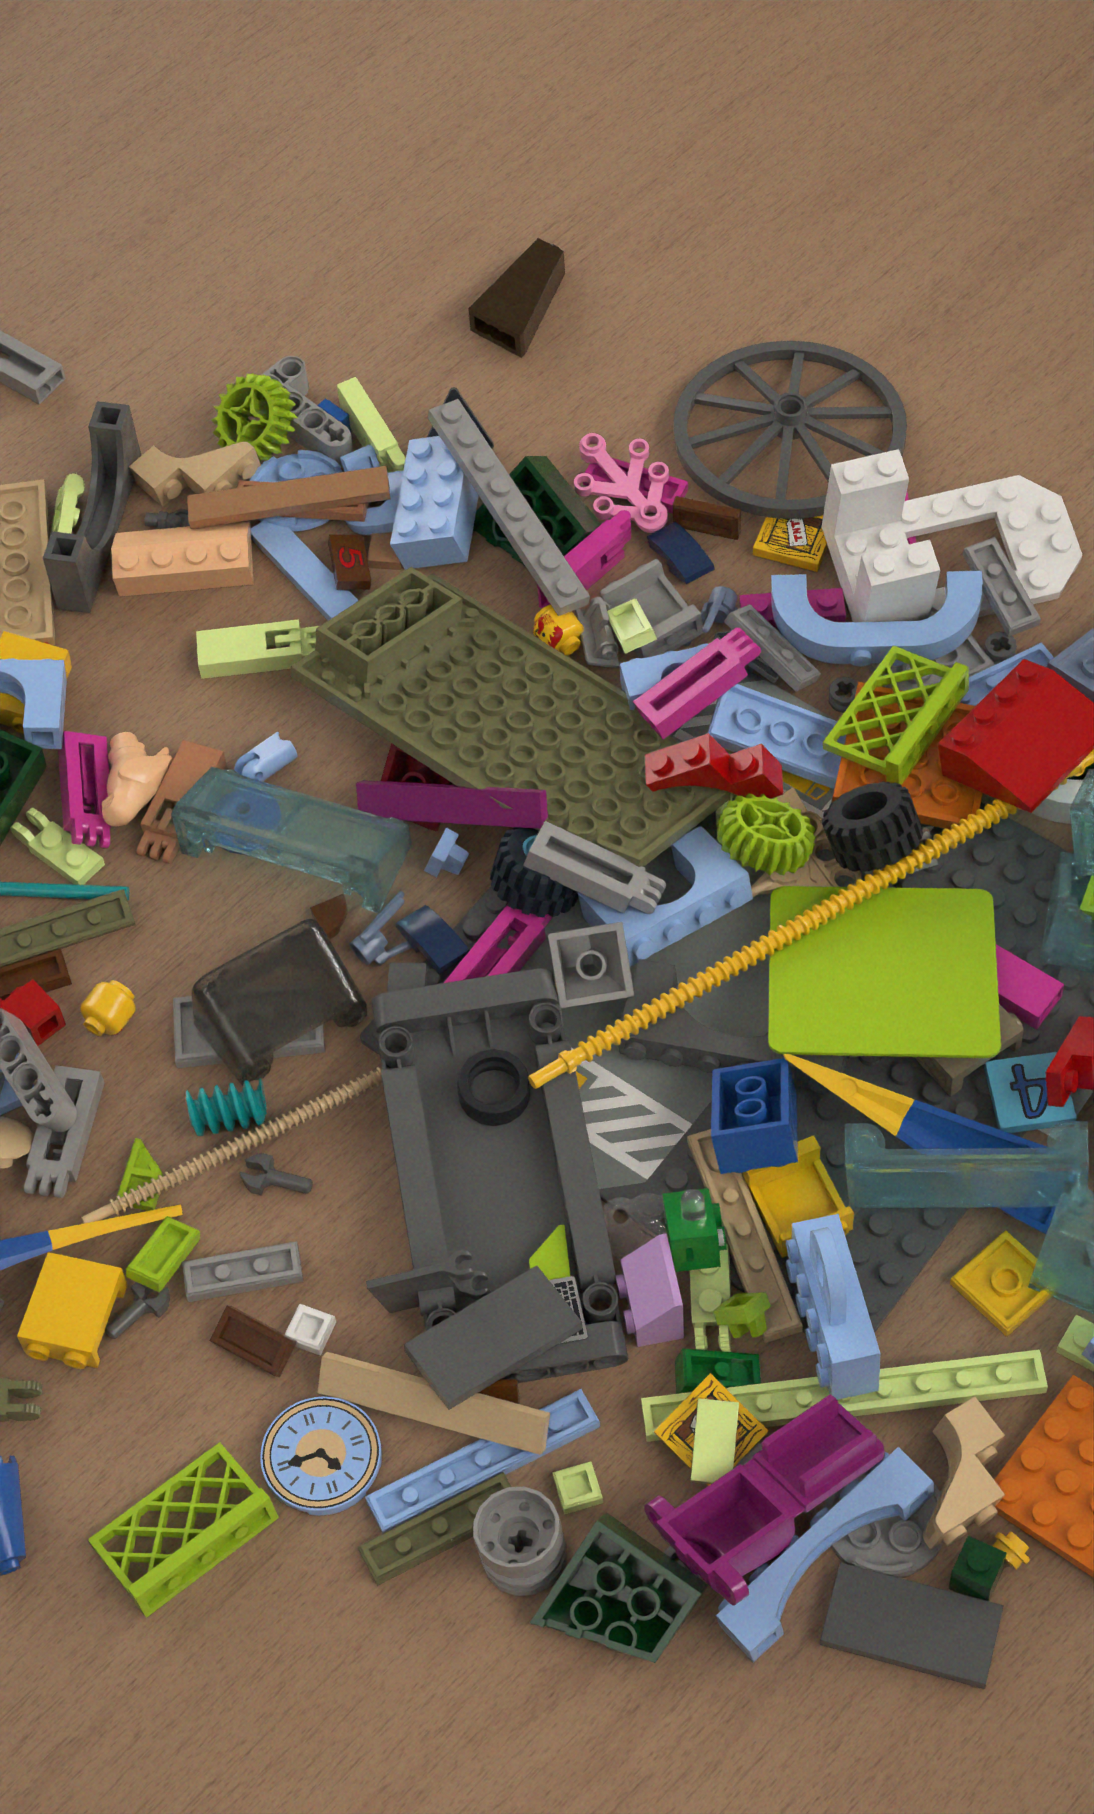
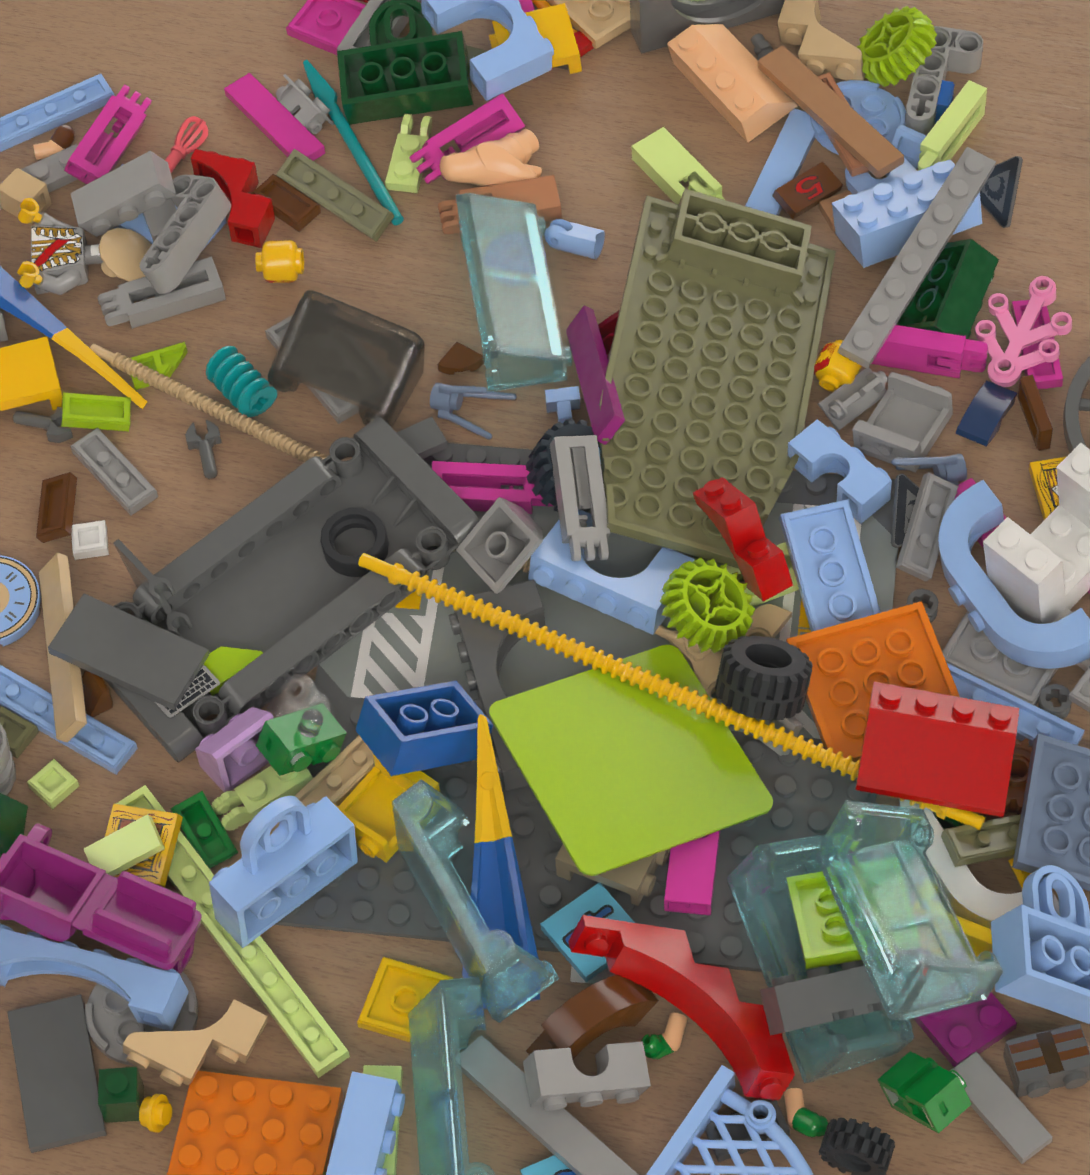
camera: 60 degrees right, 0 degrees up
(433, 937) = (477, 435): dark blue slope -> none
(631, 625) = (869, 410): yellowish green tile -> none
(697, 682) = (825, 479): dark pink hinge -> none
(744, 1313) = (245, 809): lime tile -> none
(919, 732) = (903, 667): lime fence -> none

